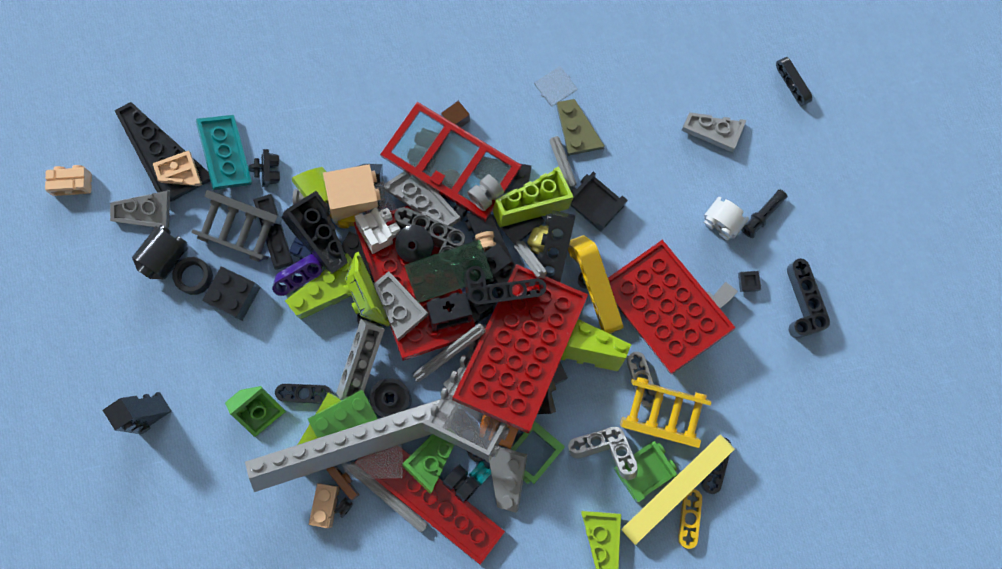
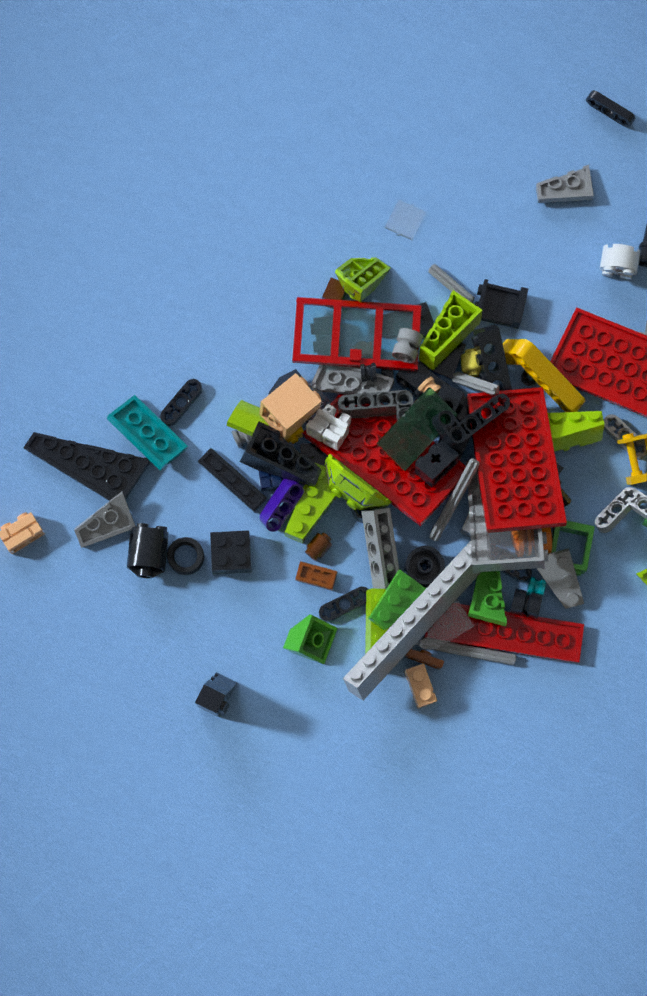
camera: 30 degrees left, 0 degrees up
(178, 170) = (118, 469): light nougat wing -> none
(251, 214) = (188, 476): dark grey fence -> none
(267, 160) = (191, 428): black hips -> none
(273, 134) = (180, 394): none -> black beam
(293, 354) = (316, 576): none -> dark orange plate
(310, 329) = (318, 546): none -> reddish brown brick
(344, 507) = (437, 679): black bush -> none
(399, 305) = (390, 480): light grey wing -> none
(422, 240) = (368, 413): black dish -> none
(439, 199) = (368, 372): none -> black wheel
(485, 113) = (361, 276): none -> lime wedge
(576, 129) = (446, 249): olive wing -> none

